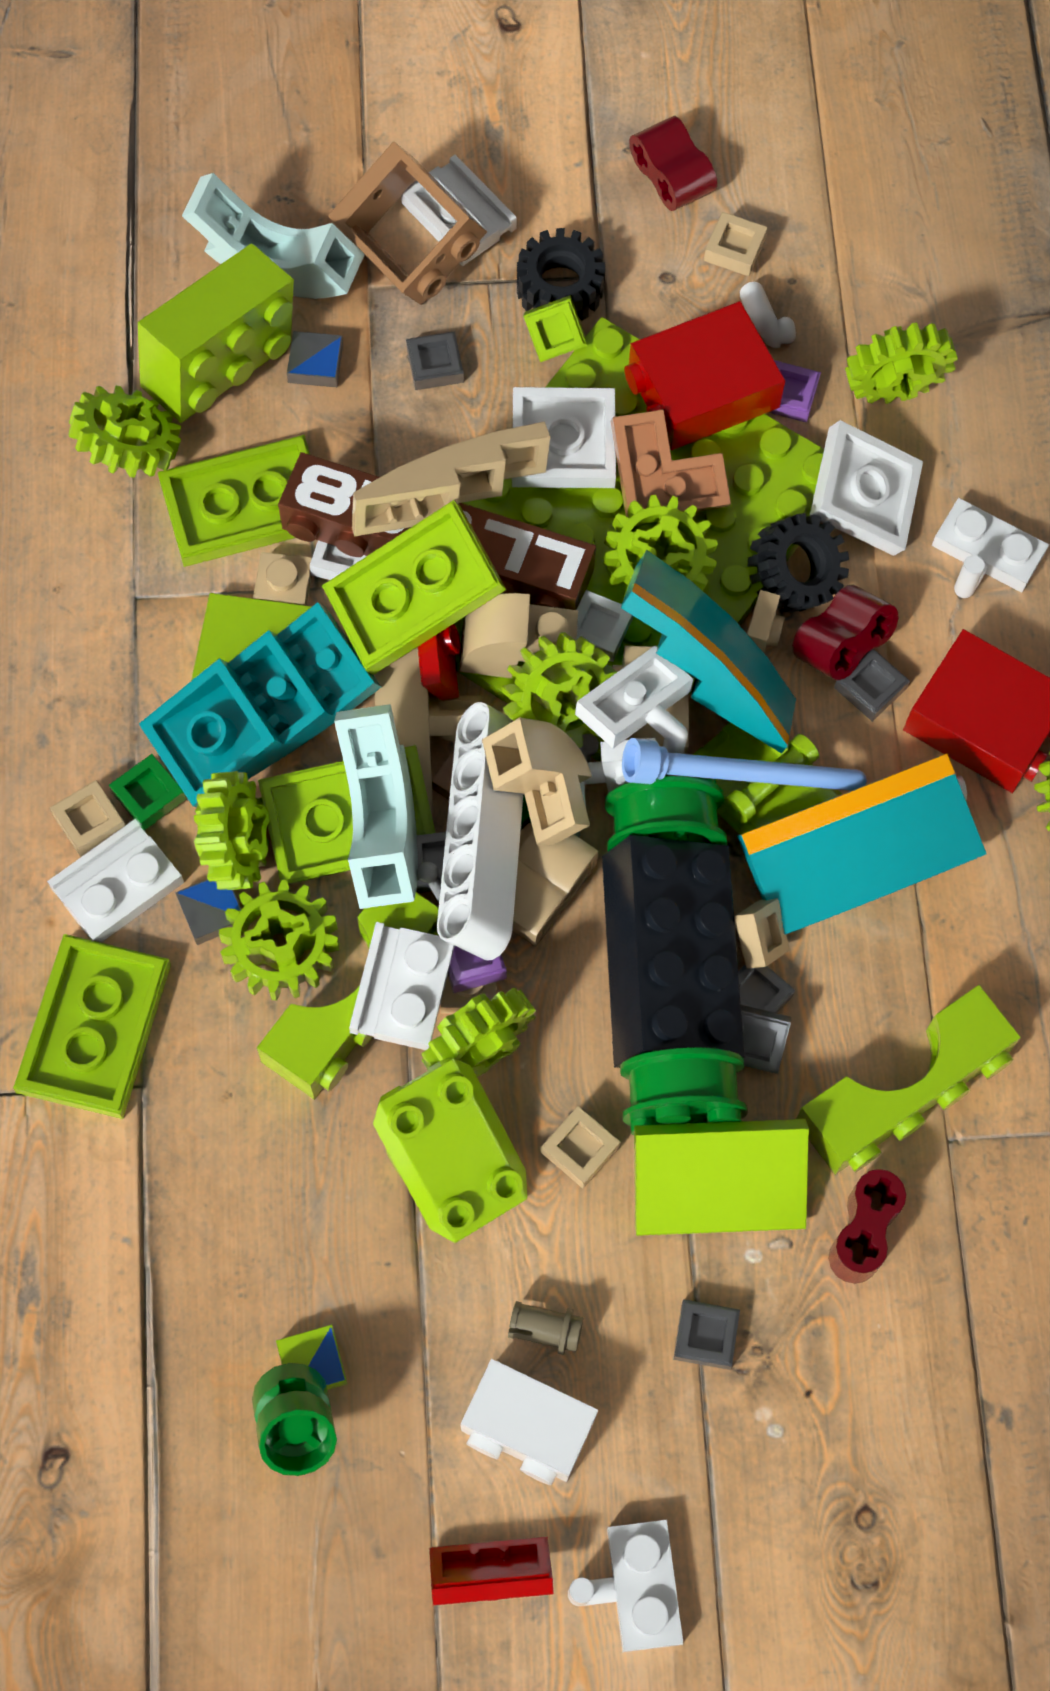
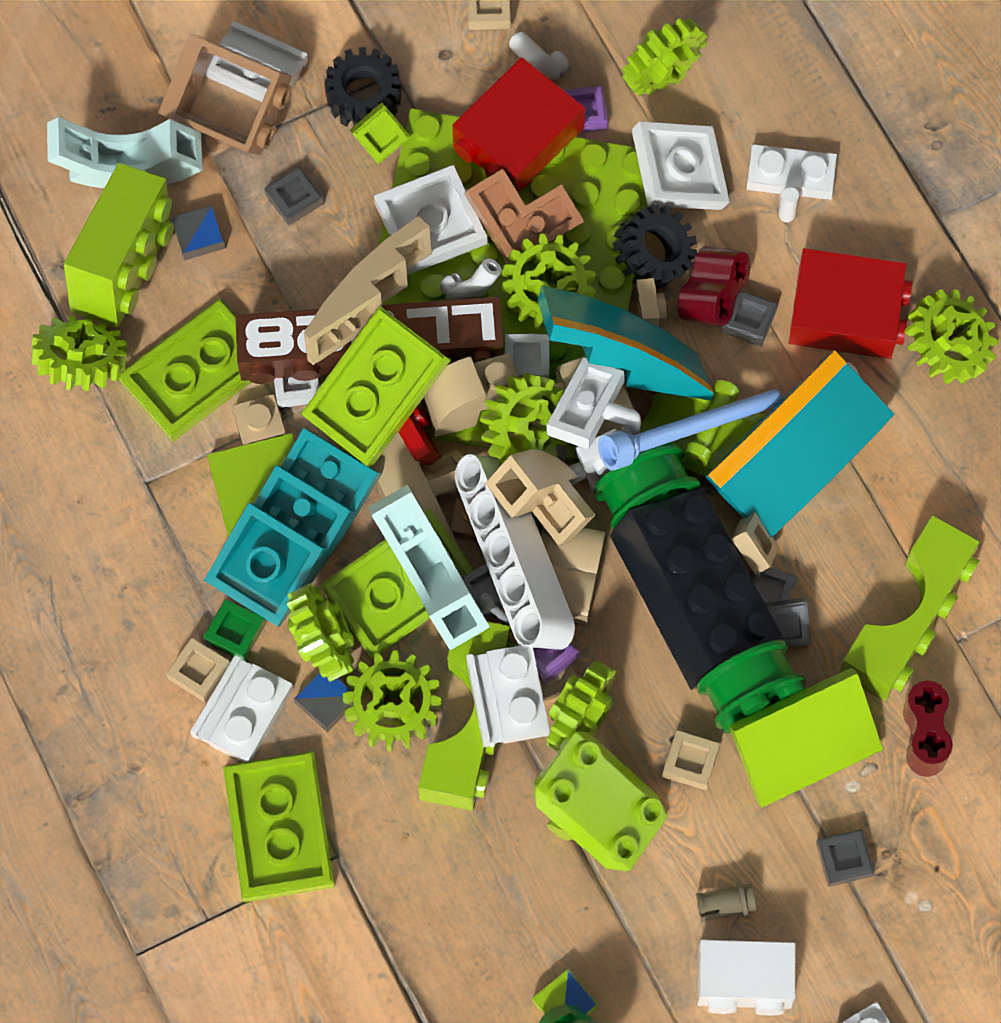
camera: 20 degrees left, 0 degrees up
(578, 527) = (474, 287): none -> white arm

